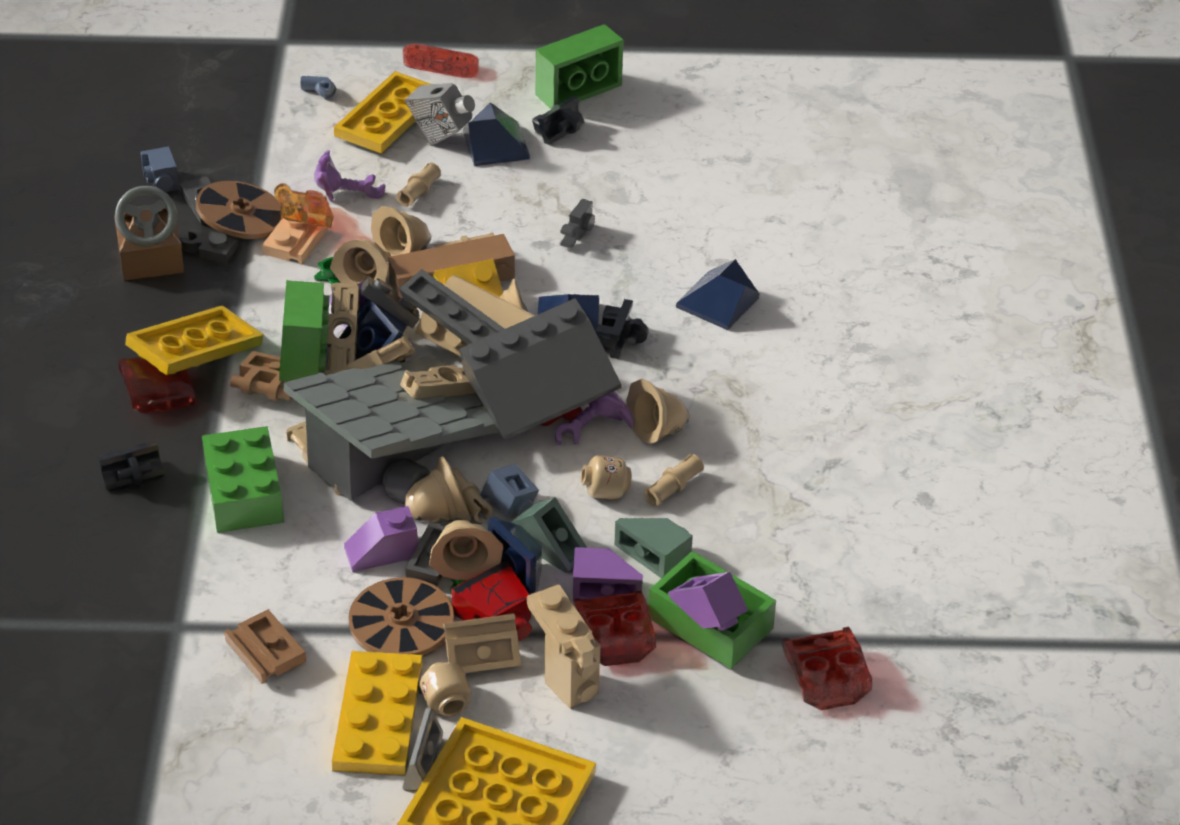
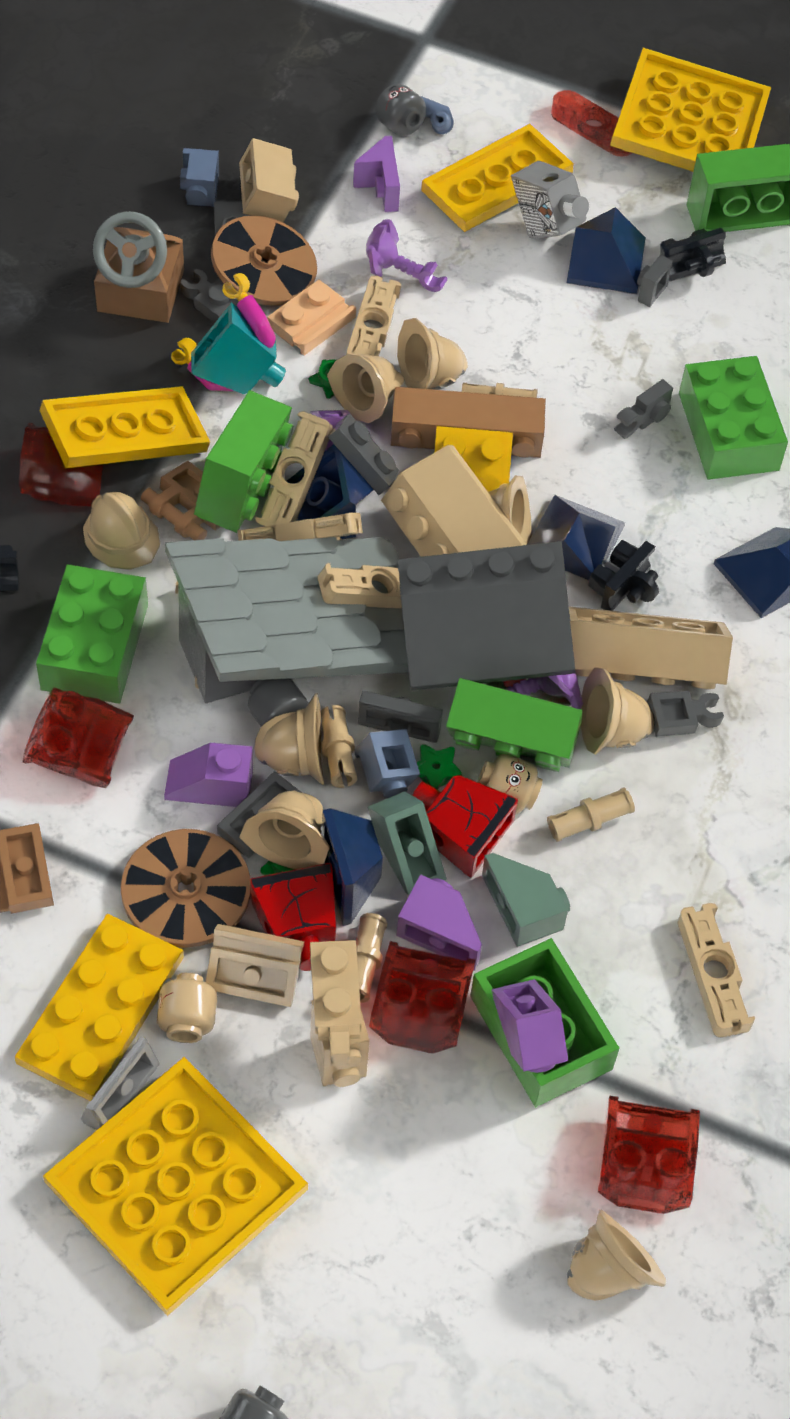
camera: 20 degrees right, 15 degrees up
(215, 156) = (268, 180): none -> tan brick
(222, 408) = (120, 532): none -> tan piece
(254, 266) = (236, 348): none -> teal torso
(265, 547) = (77, 736): none -> clear red slope
(292, 87) = (401, 109): none -> dark grey head
(299, 129) = (379, 170): none -> medium lavender slope
(304, 207) = (345, 284): clear orange plate -> none
(343, 217) = (378, 306): none -> tan piece
(418, 184) = (485, 291): tan pin -> none
(448, 308) = (420, 495): dark grey plate -> none
(491, 458) = (399, 714): none -> dark grey plate
(505, 34) = (687, 110): none -> yellow plate
(539, 144) = (654, 280): none -> dark grey plate
(548, 485) = (444, 758): none -> green plate
(581, 432) = (514, 724): none -> bright green brick
(591, 508) = (467, 820): none -> red torso
(643, 211) = (732, 417): none -> bright green brick
(671, 363) = (650, 647): none -> tan slope
(706, 401) = (679, 714): none -> dark grey plate
(823, 561) = (722, 994): none -> tan piece
(836, 736) = (610, 1262): none -> tan piece

